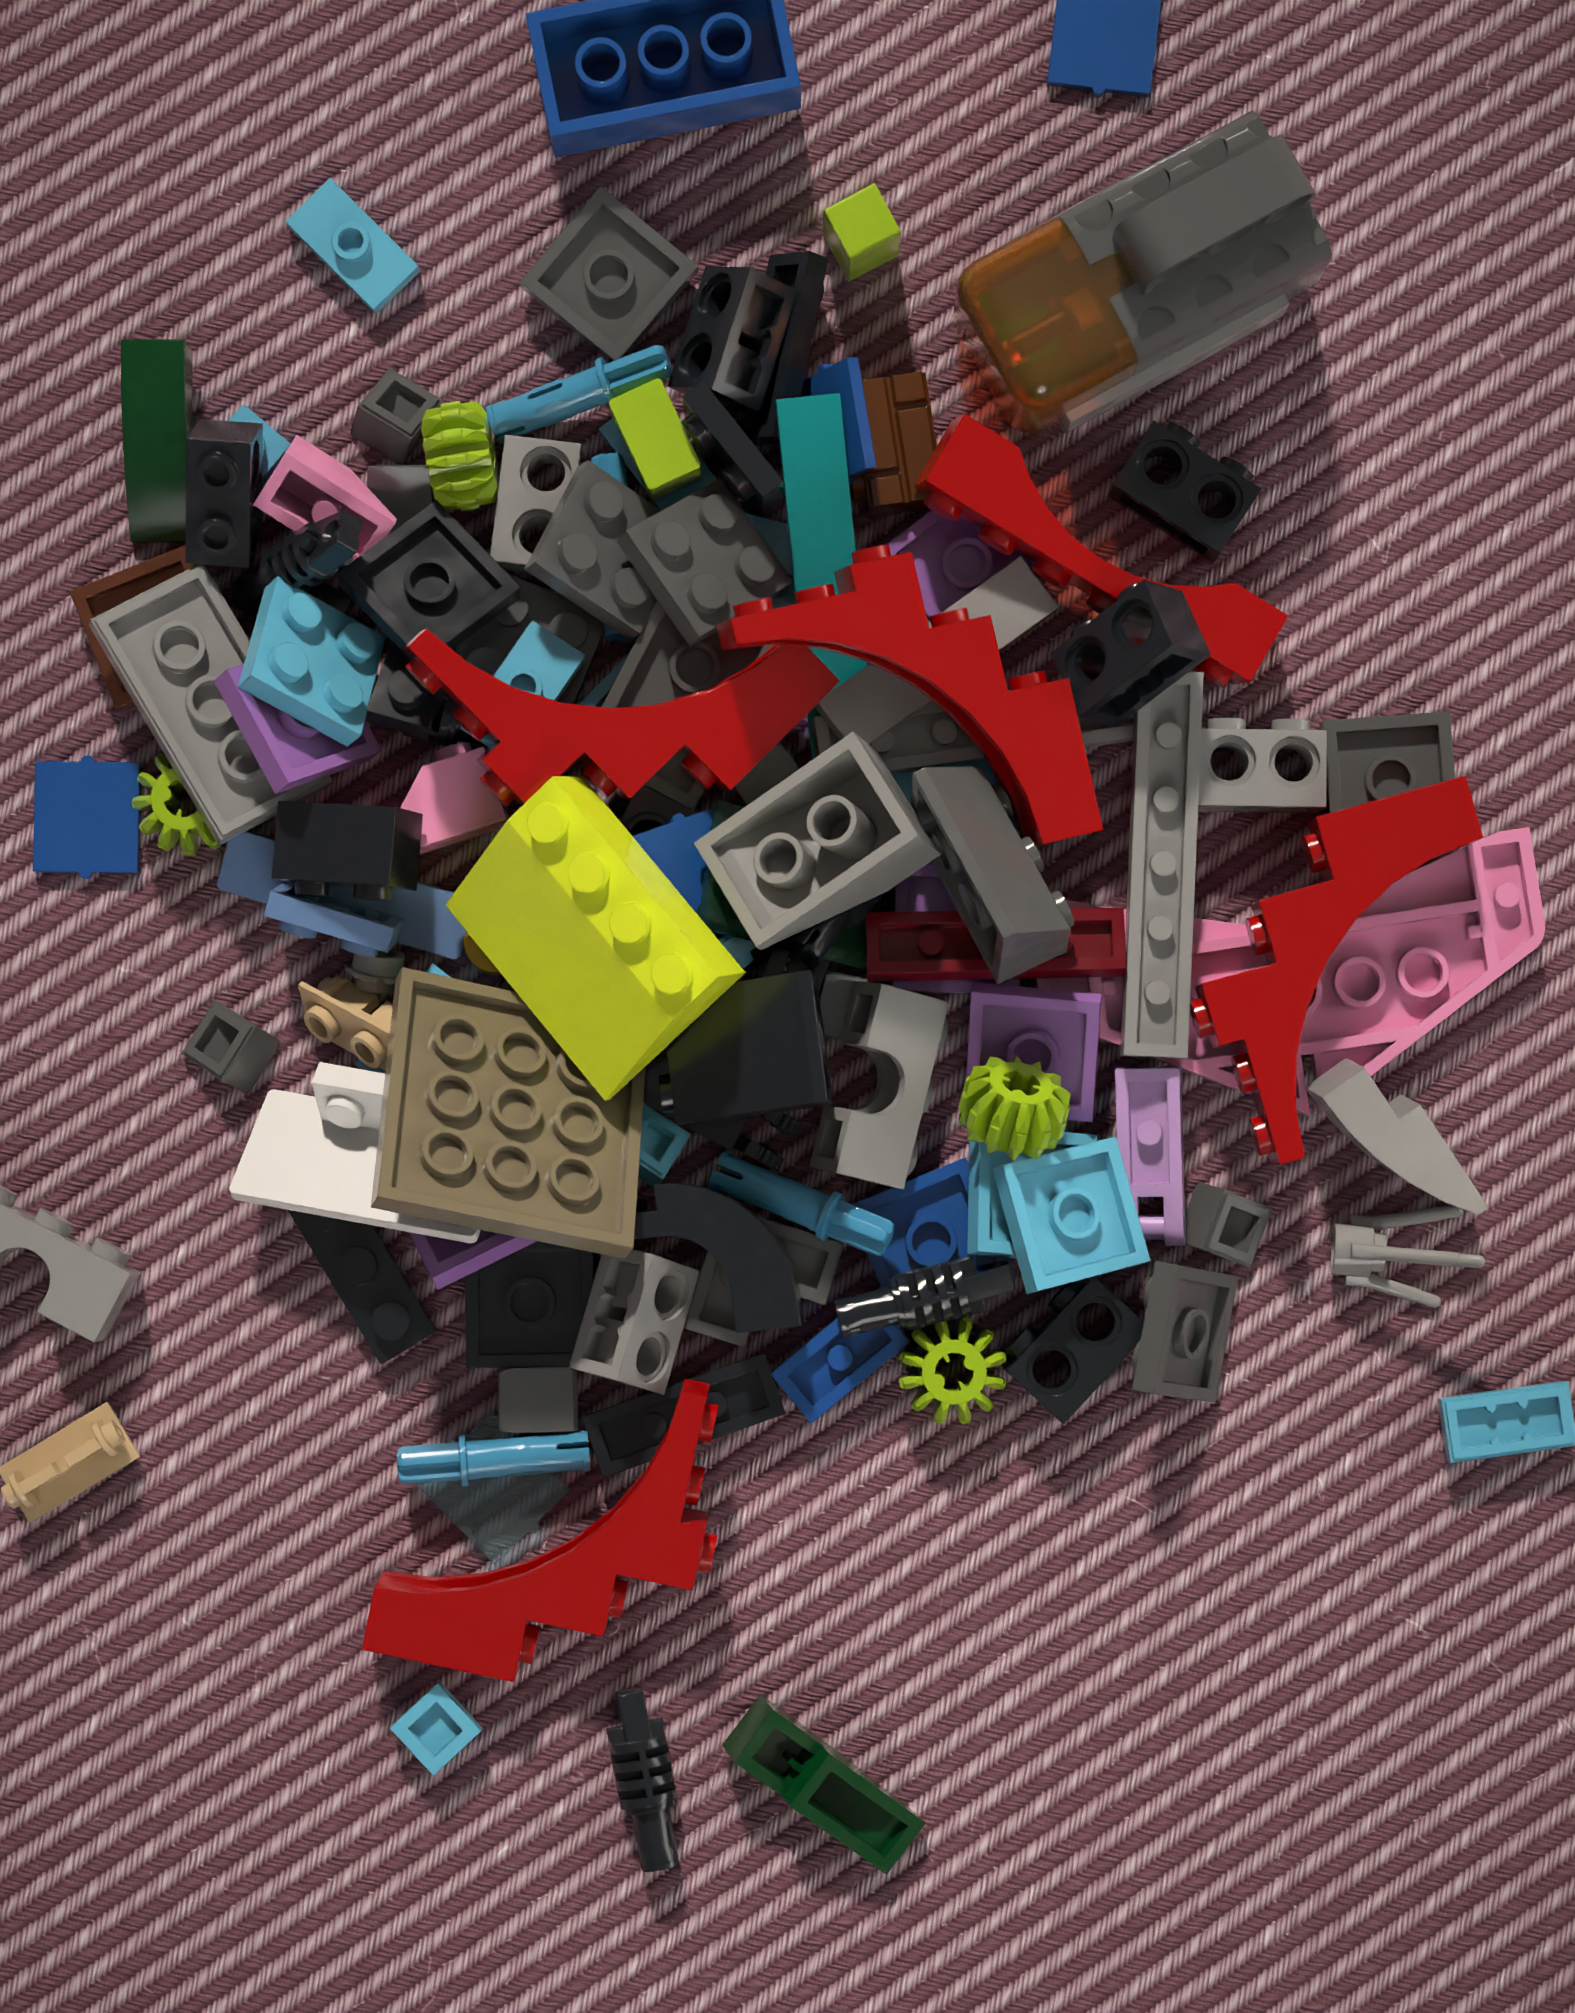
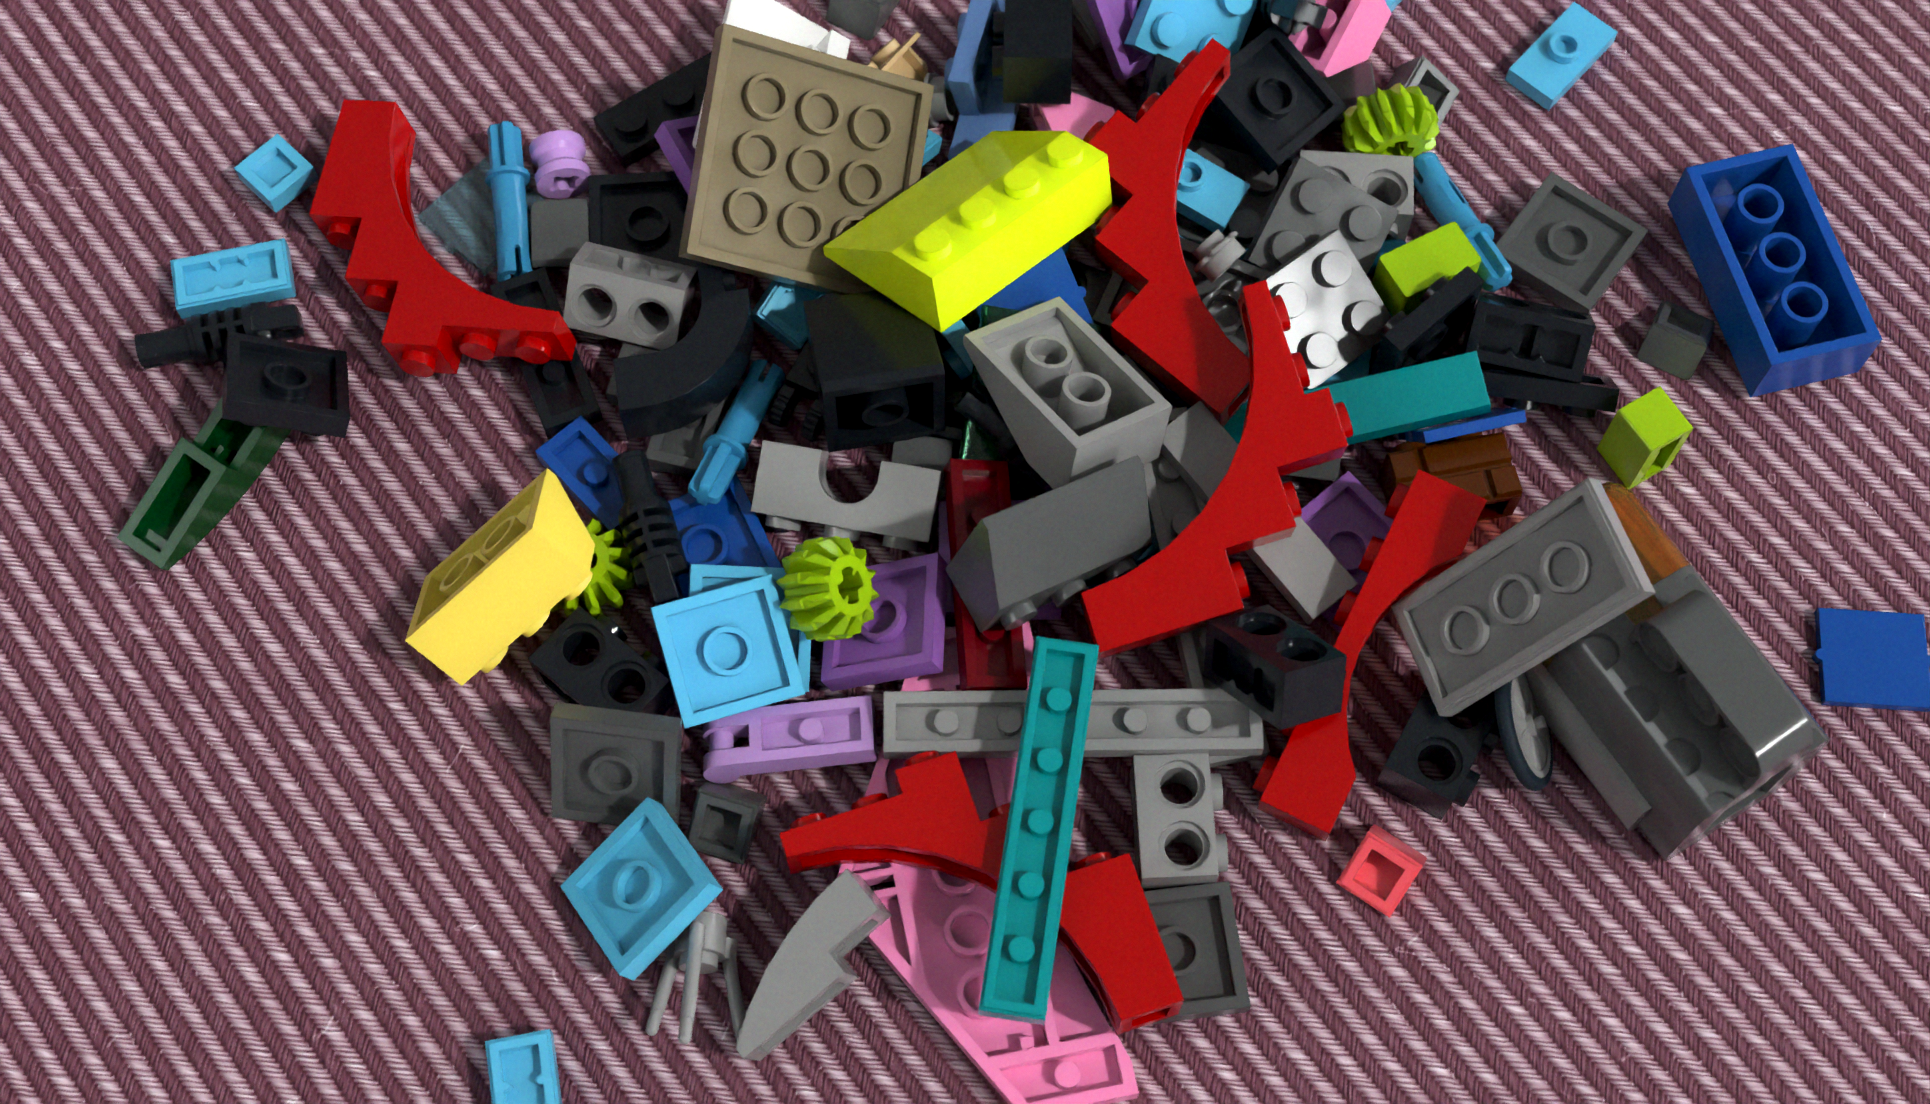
camera: 85 degrees right, 20 degrees down
(446, 1401) = (560, 164): none -> lavender wheel
(571, 1769) = (233, 278): none -> medium azure plate
(642, 665) = (1217, 254): none -> light grey plate
(724, 174) = (1676, 340): none -> dark grey slope
(729, 1696) = (285, 385): none -> black plate
(977, 1452) = (502, 581): none -> light yellow slope
(1093, 395) = (1522, 597): none -> light grey tile
(1183, 408) = (1524, 734): none -> wheel
(1289, 902) = (1039, 832): none -> teal tile
(1306, 565) = (1381, 870): none -> coral slope
(1310, 1307) = (641, 888): none -> medium azure plate

